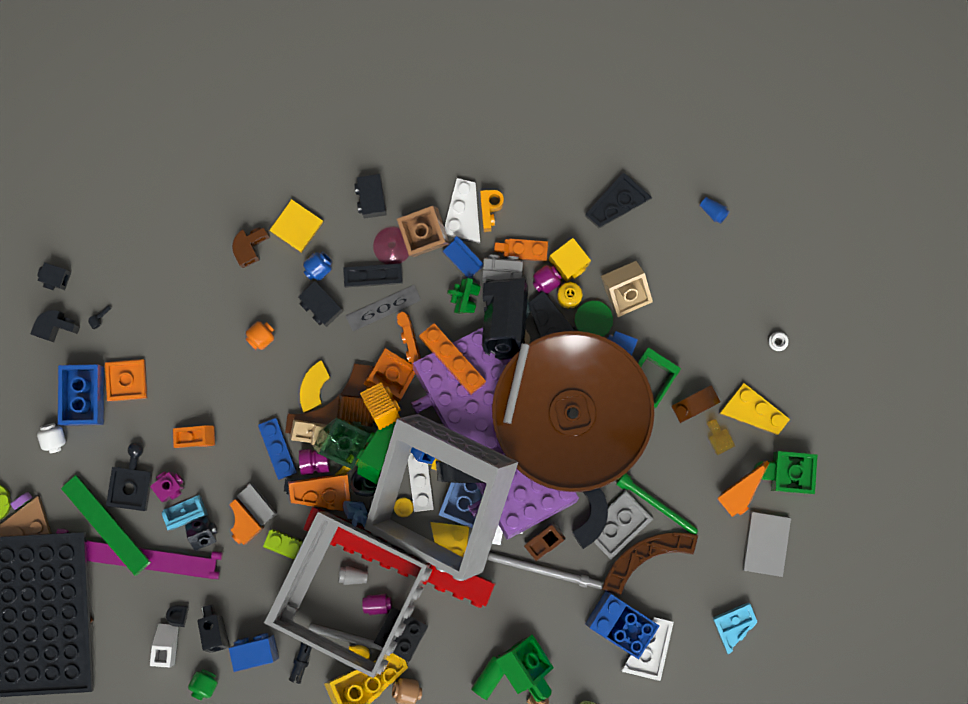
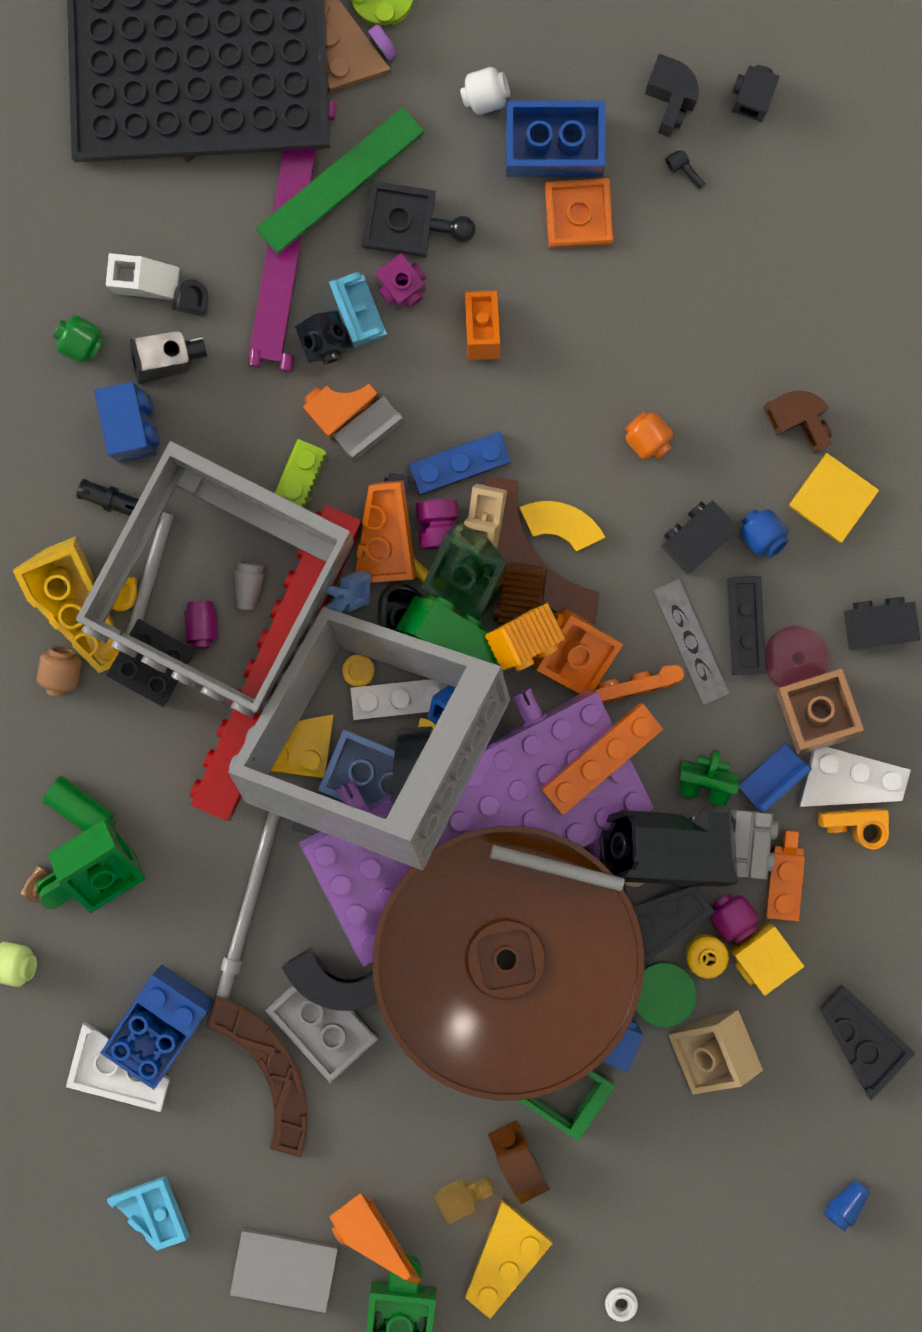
camera: 90 degrees right, 5 degrees up
(545, 541) = (296, 904): reddish brown brick -> none
(627, 483) = (387, 1045): green piece -> none

